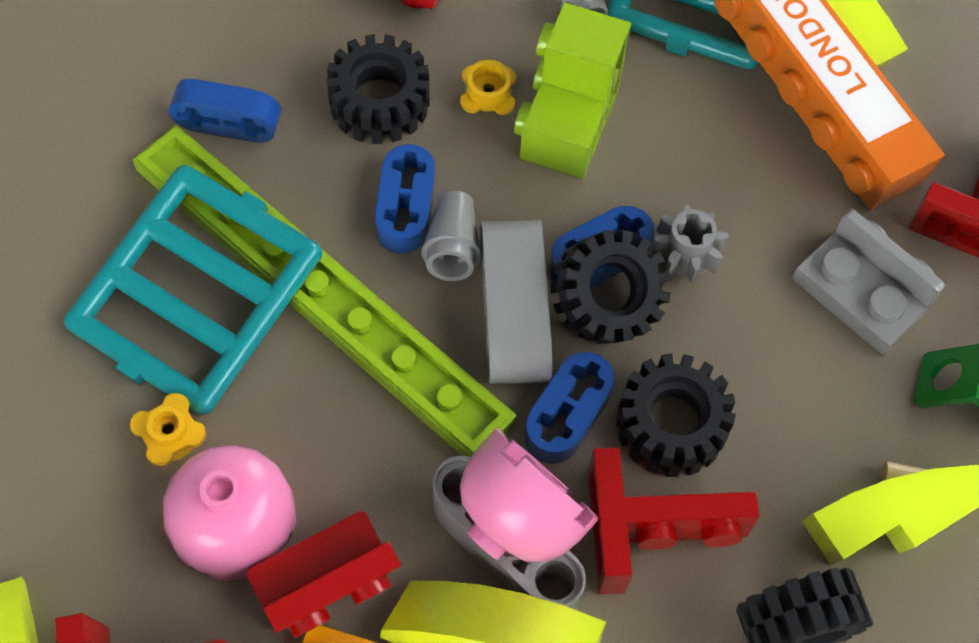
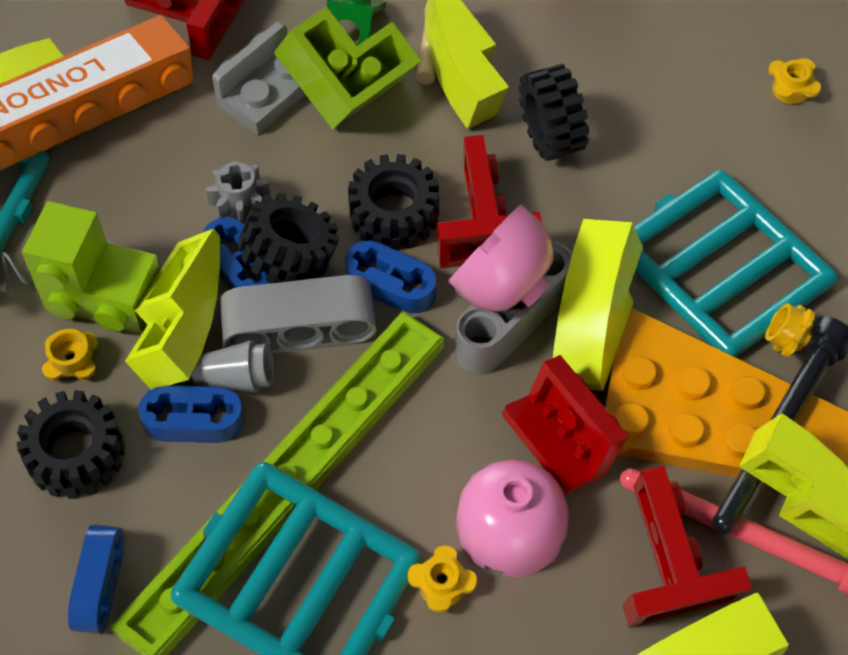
camera: 90 degrees left, 5 degrees down
(526, 180) = (178, 312): none -> neon yellow slope
(853, 354) = (337, 72): none -> lime brick

